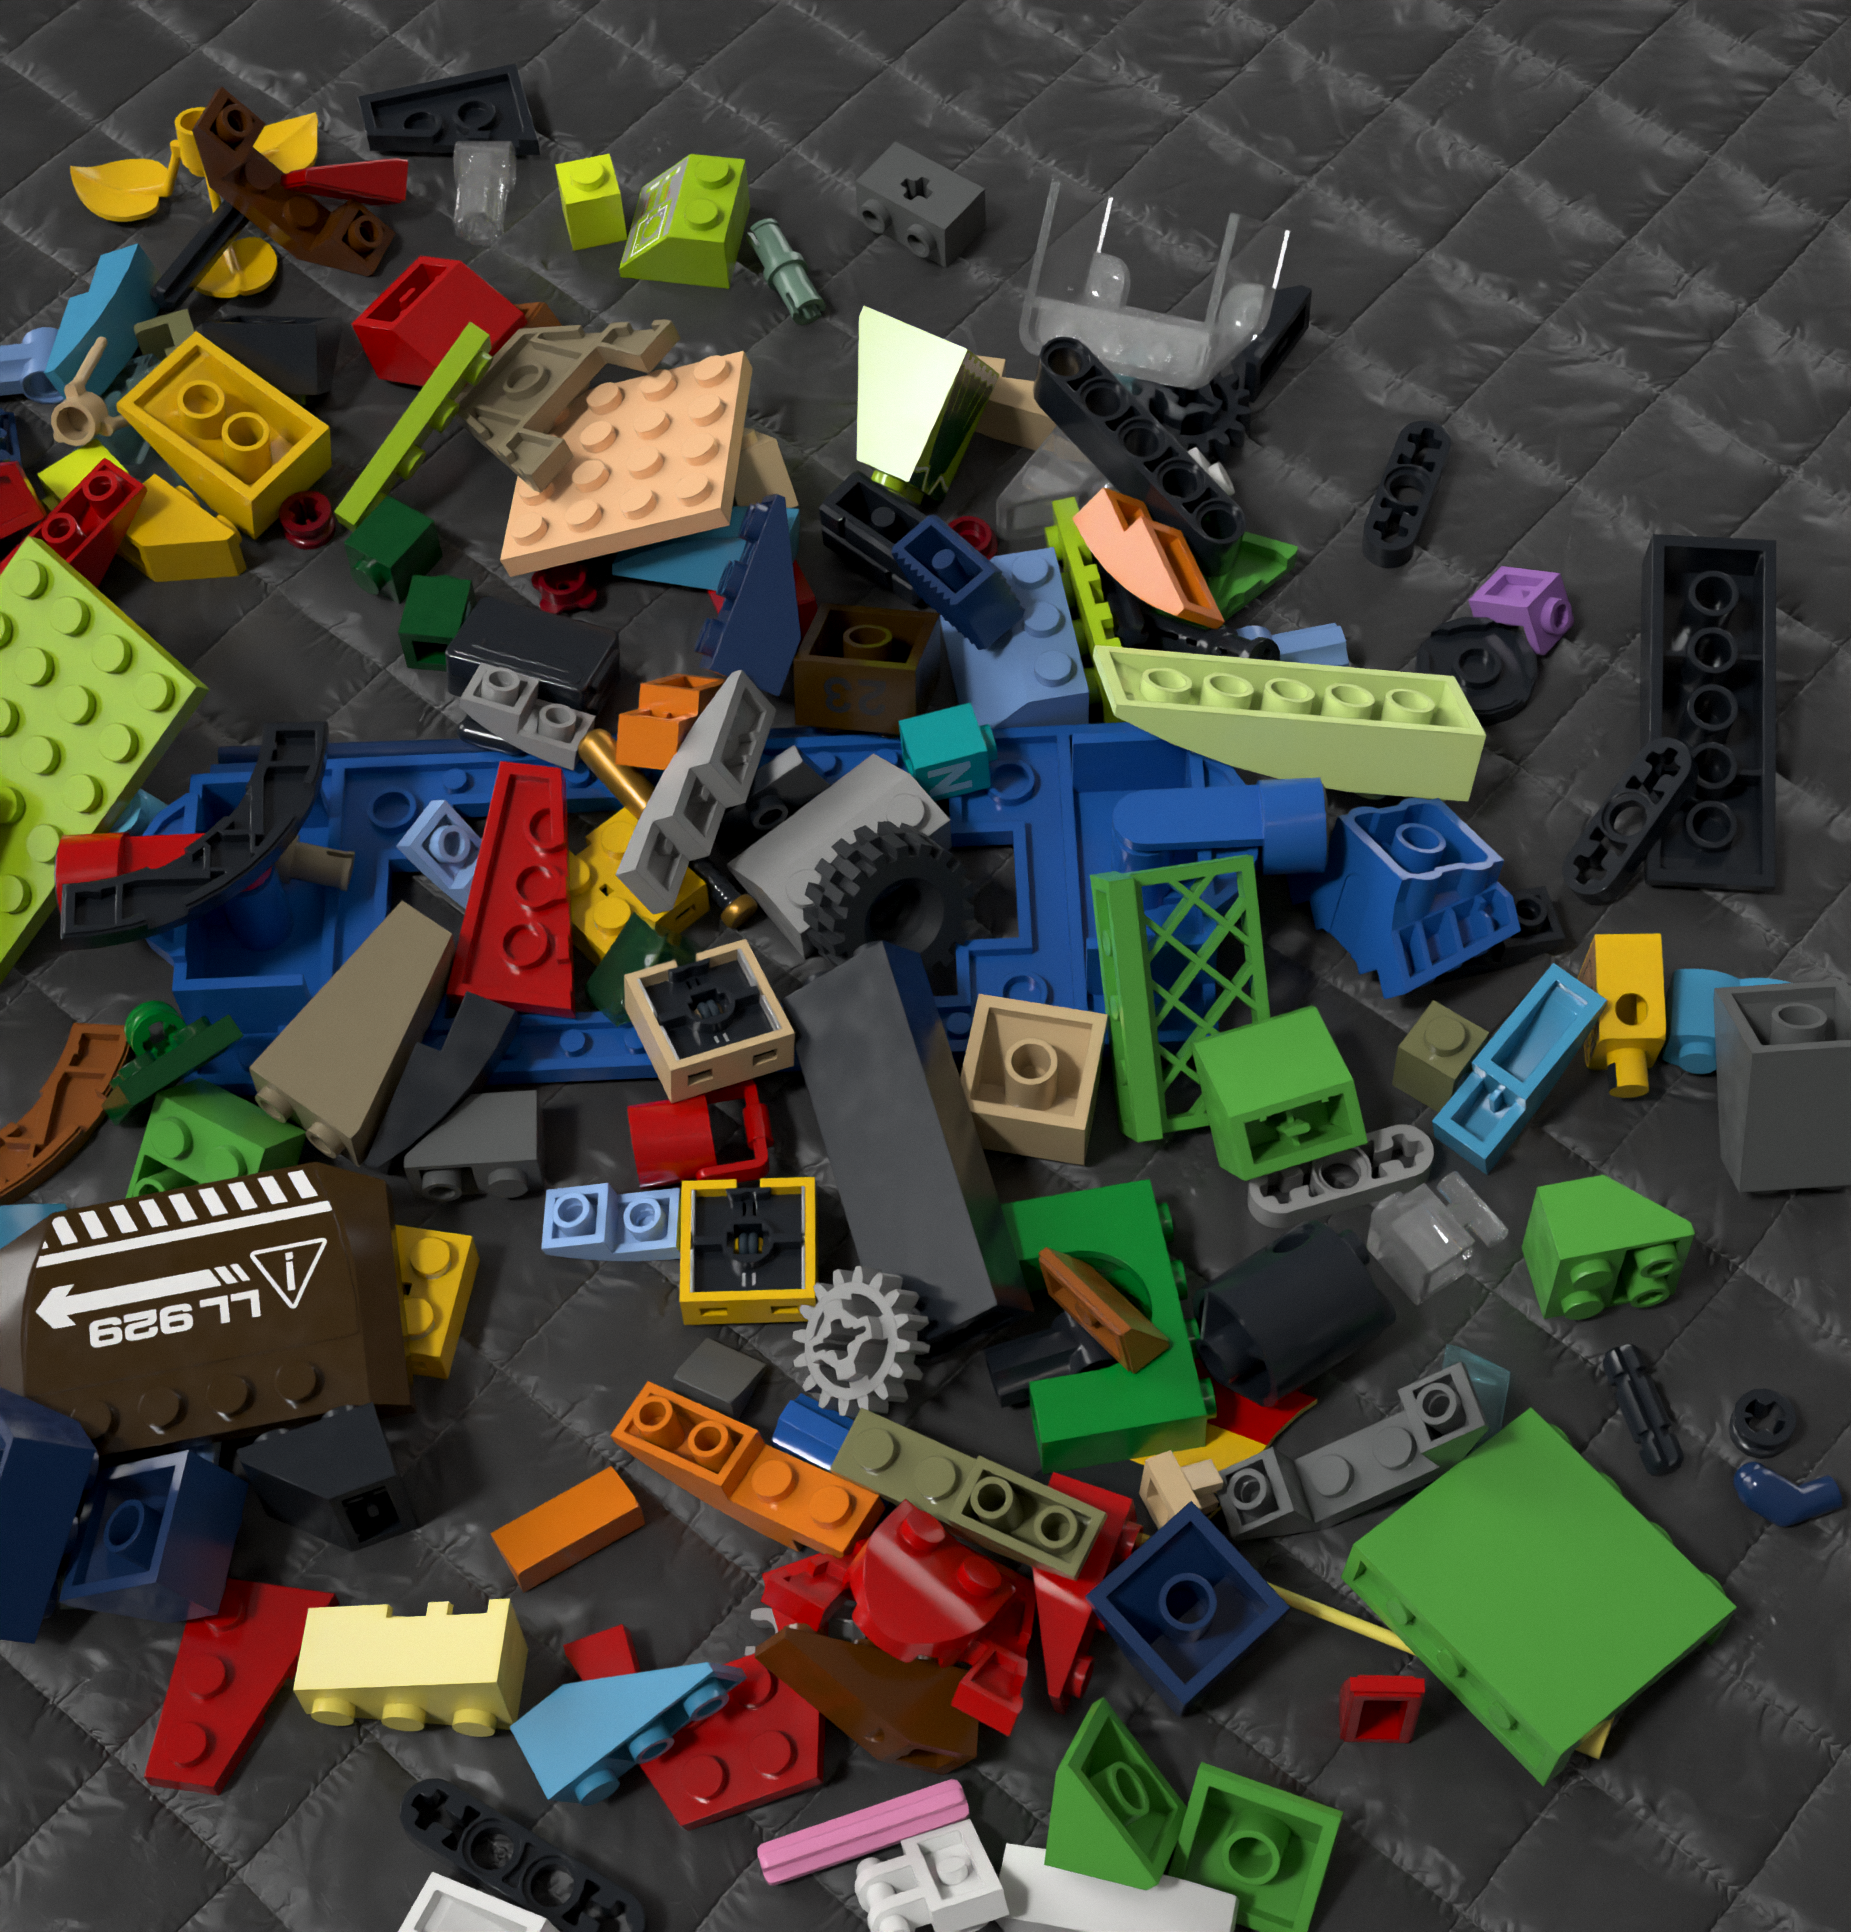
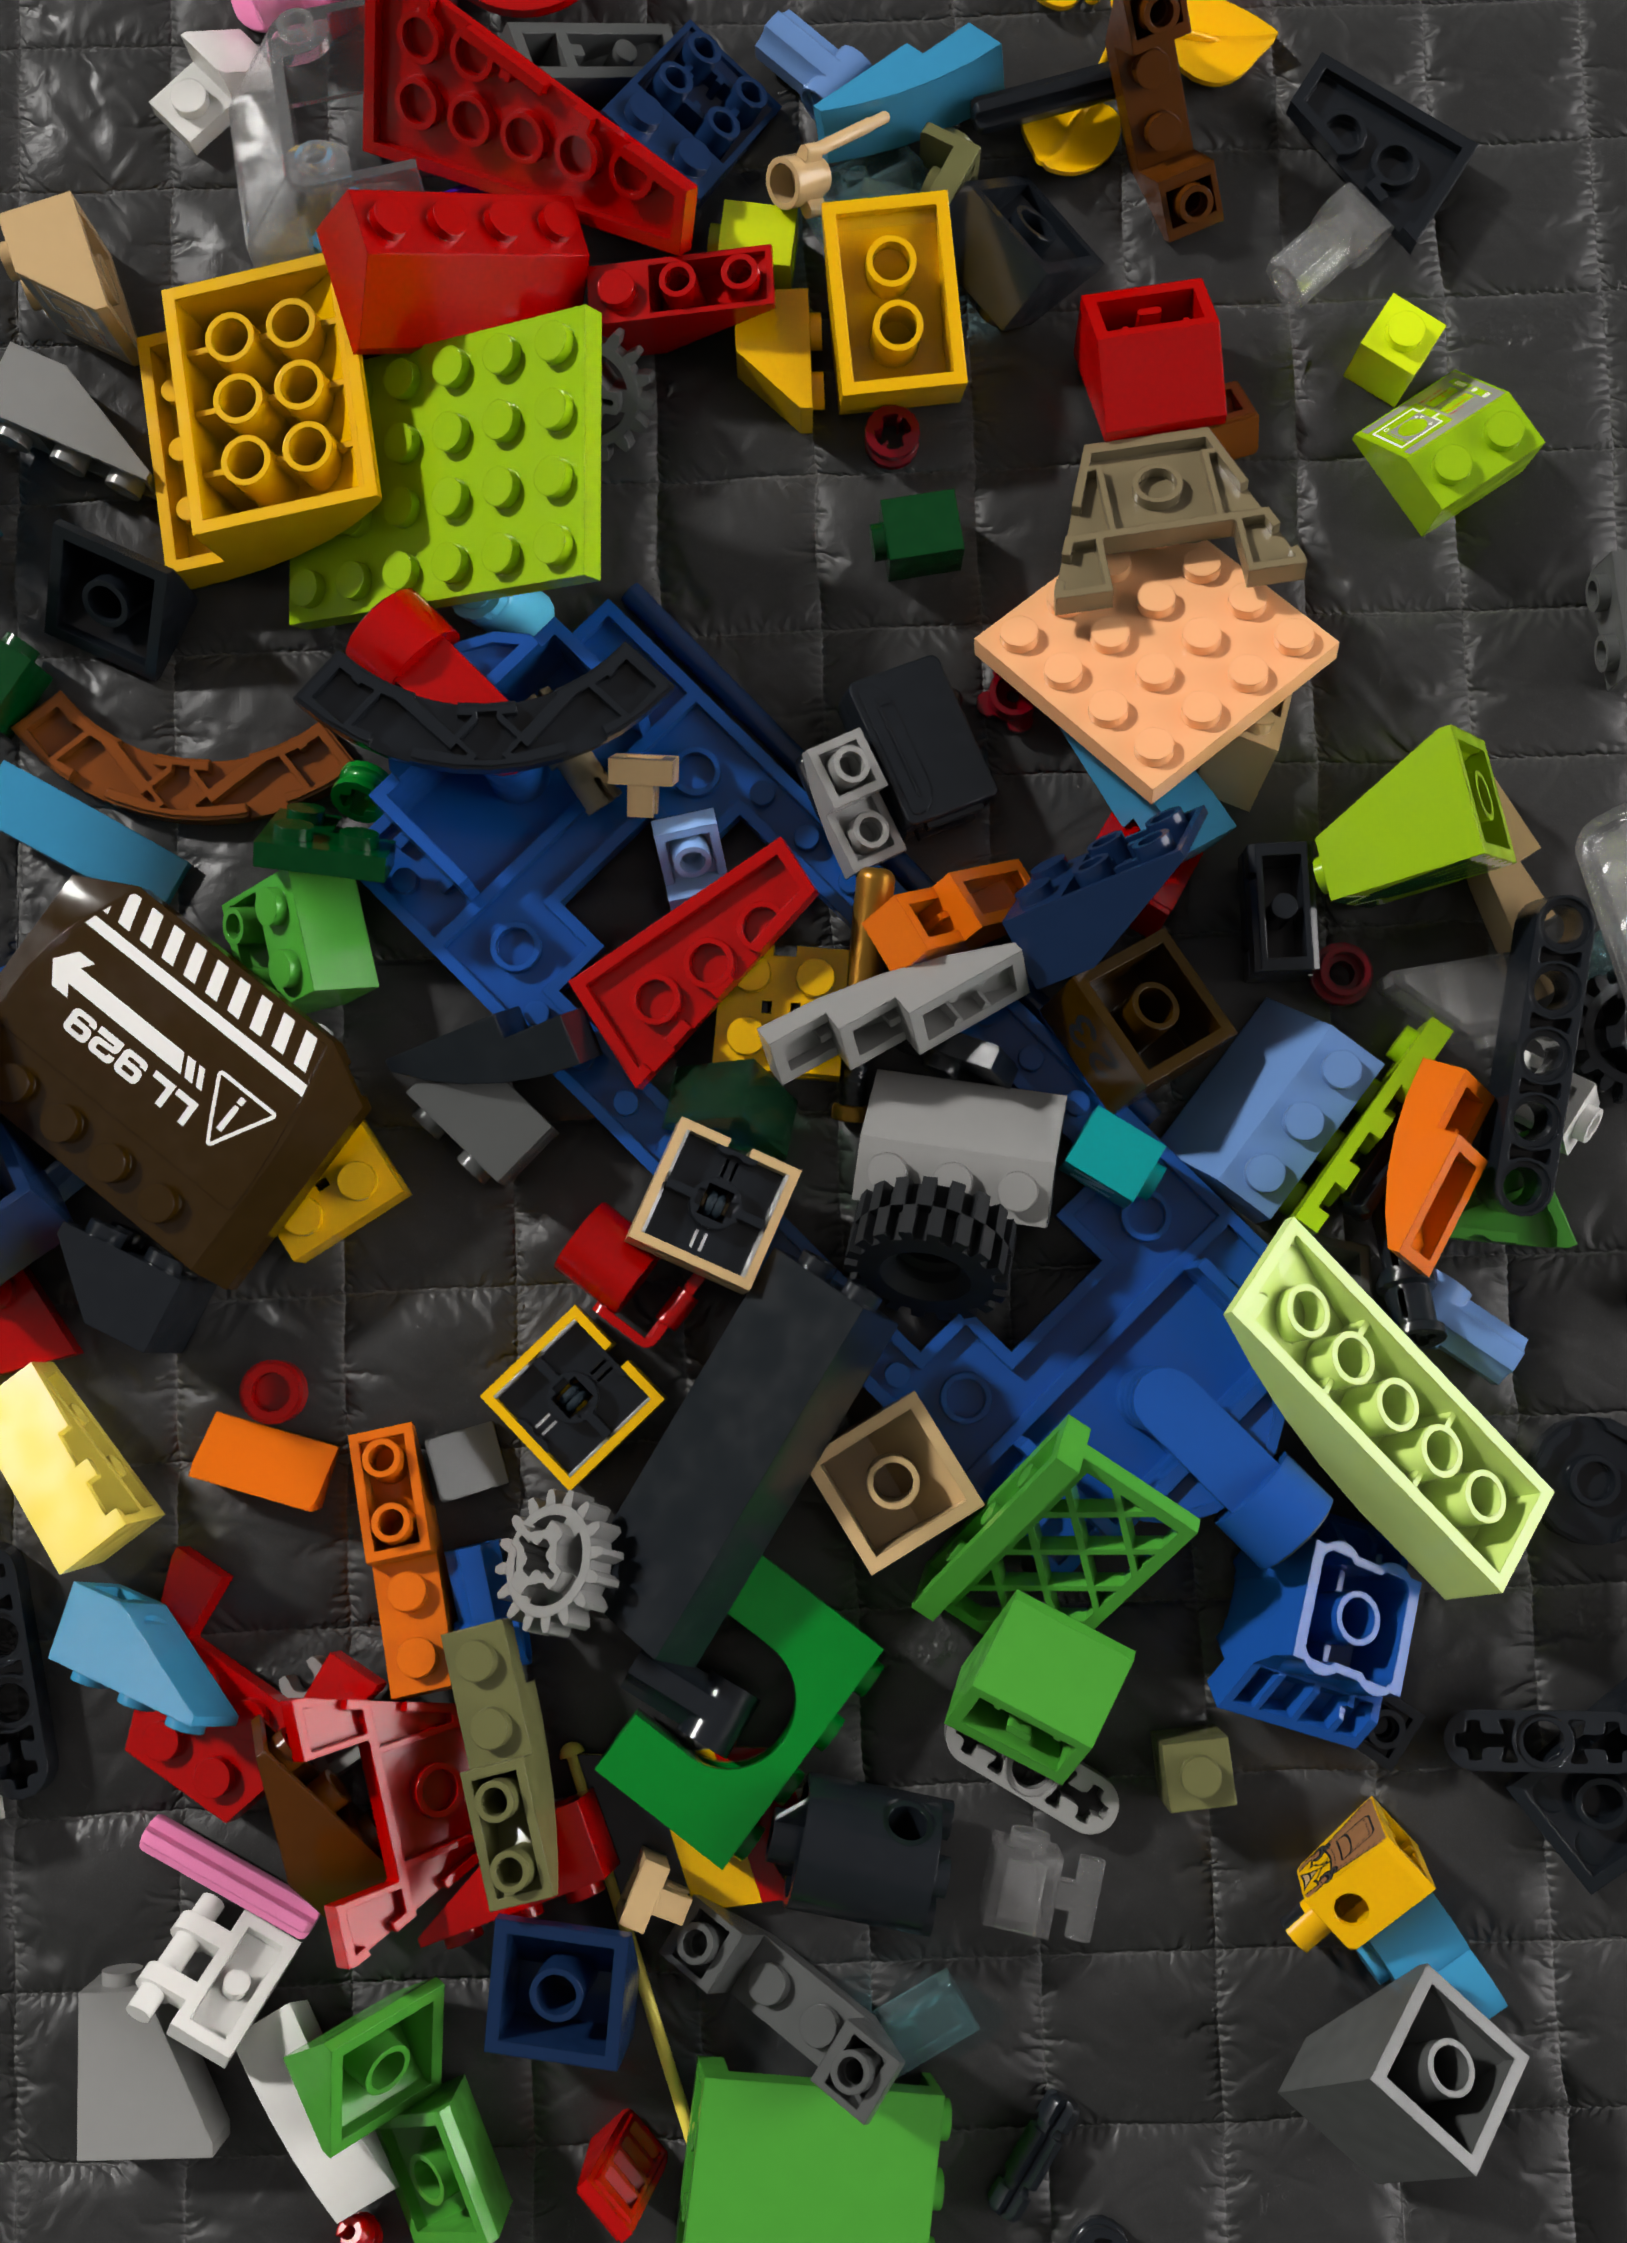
camera: 45 degrees right, 25 degrees up
(354, 1038) = (469, 957): dark tan slope -> none
(362, 824) = (643, 778): none -> tan tile
(369, 182) = (1238, 149): red slope -> none
(429, 411) = (1058, 446): lime plate -> none
(432, 618) = (889, 633): dark green brick -> none
(519, 1478) = (273, 1391): none -> red tile
(605, 1226) = (517, 1268): light blue slope -> none
(785, 271) = (1475, 572): sand green pin -> none
(922, 1589) = (396, 1801): red slope -> none
(958, 582) = (1269, 1031): dark blue brick -> none
(1101, 1310) = (740, 1721): dark orange slope -> none
(1518, 1068) = (1231, 1849): dark azure slope -> none
(1602, 1248) = (1121, 2038): bright green slope -> none

